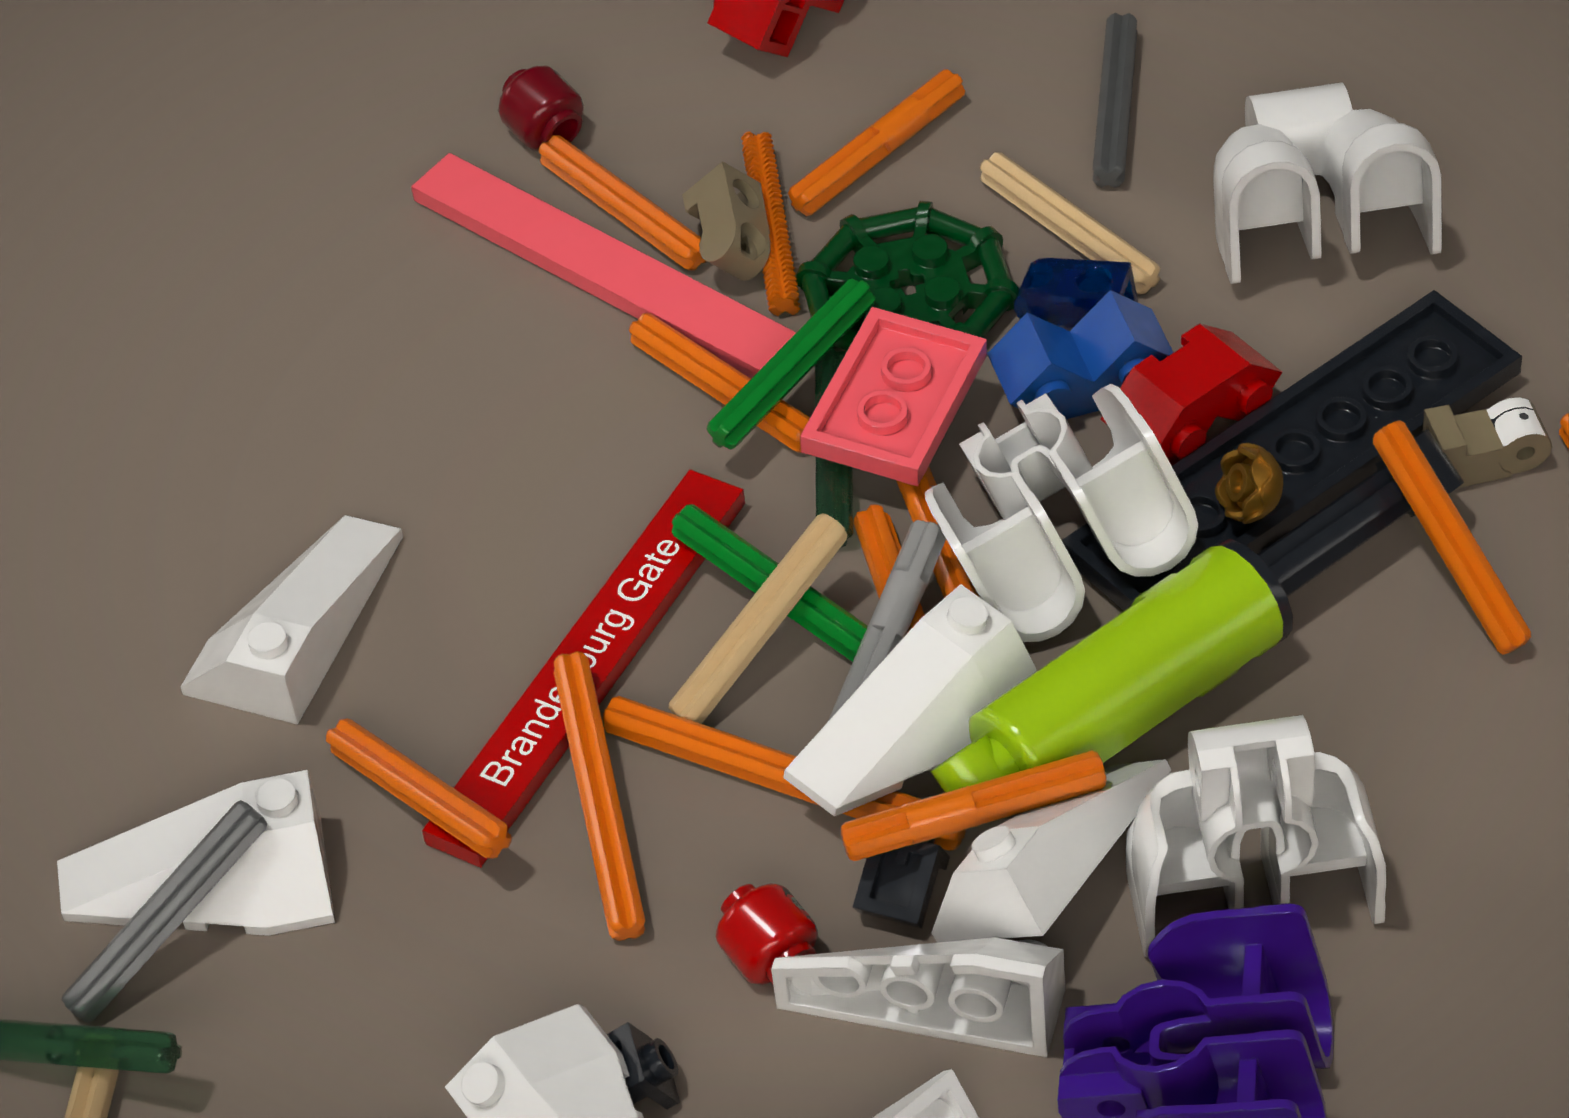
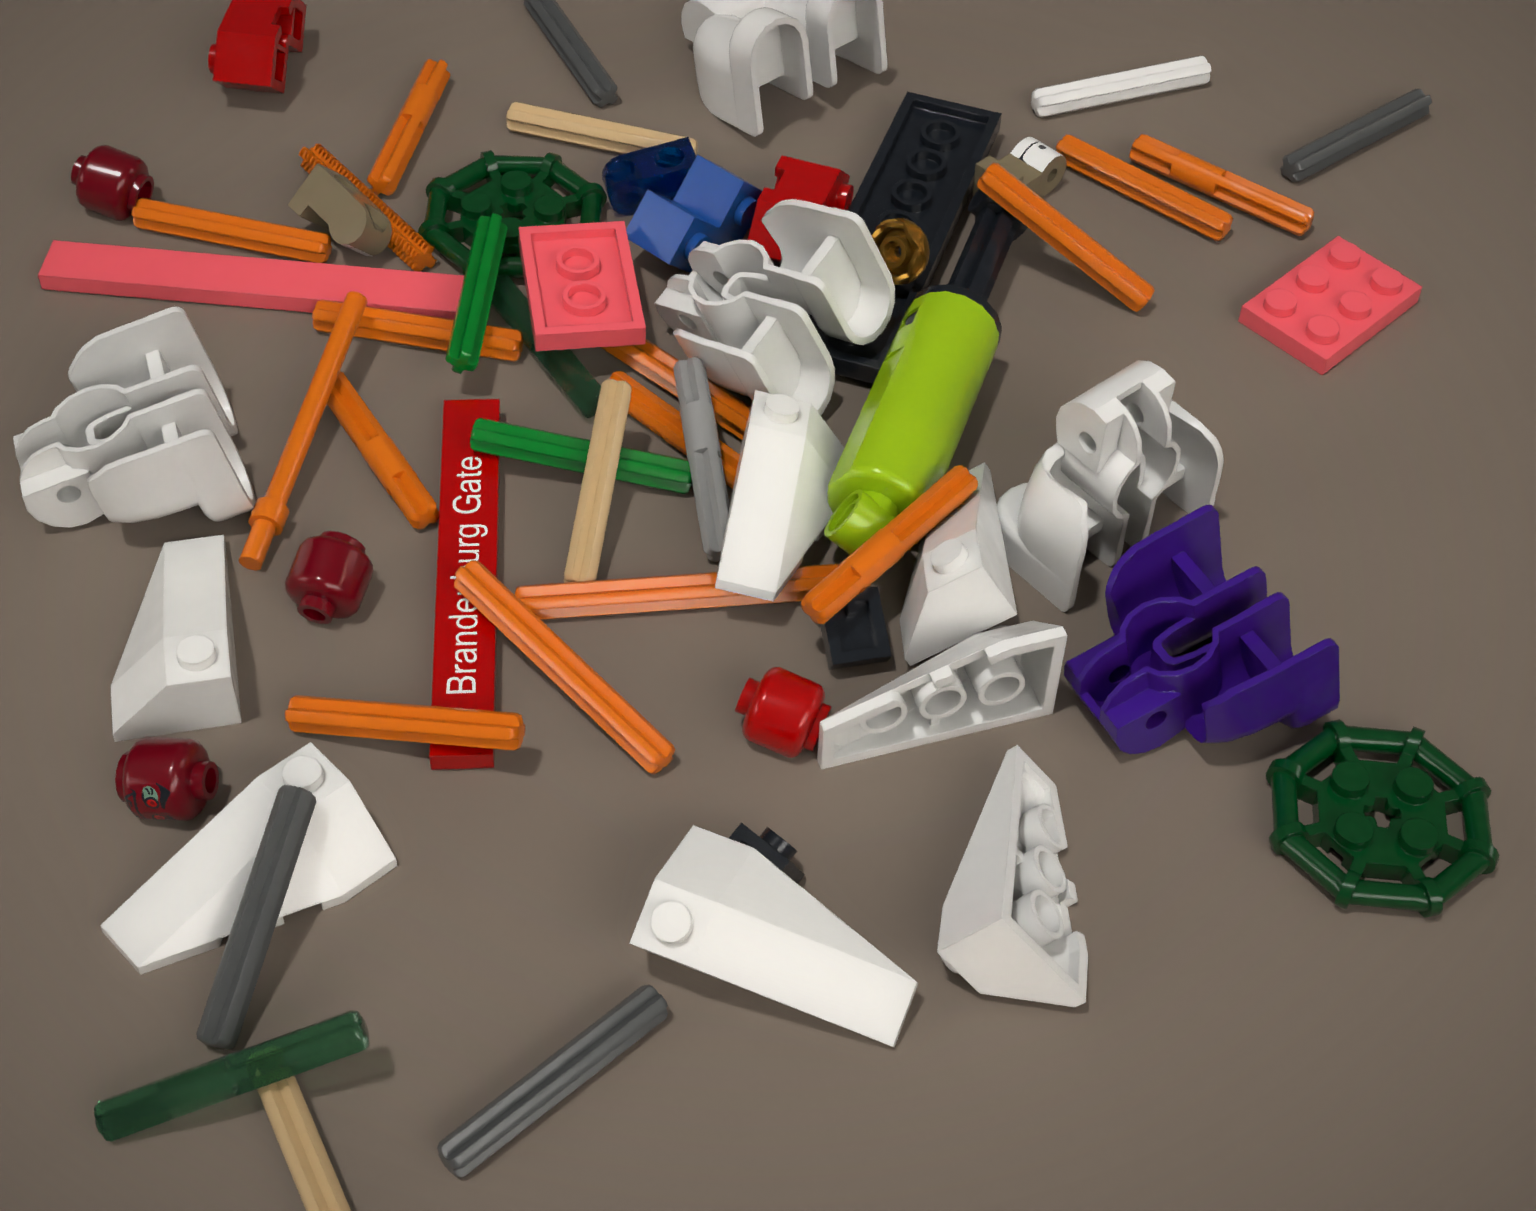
camera: 40 degrees left, 0 degrees up
(186, 747) = (166, 778): none -> dark red head
(381, 400) = (137, 434): none -> white piece
(453, 523) = (271, 510): none -> orange bar
(453, 613) = (329, 577): none -> dark red head
(595, 496) = (382, 454): none -> orange axle

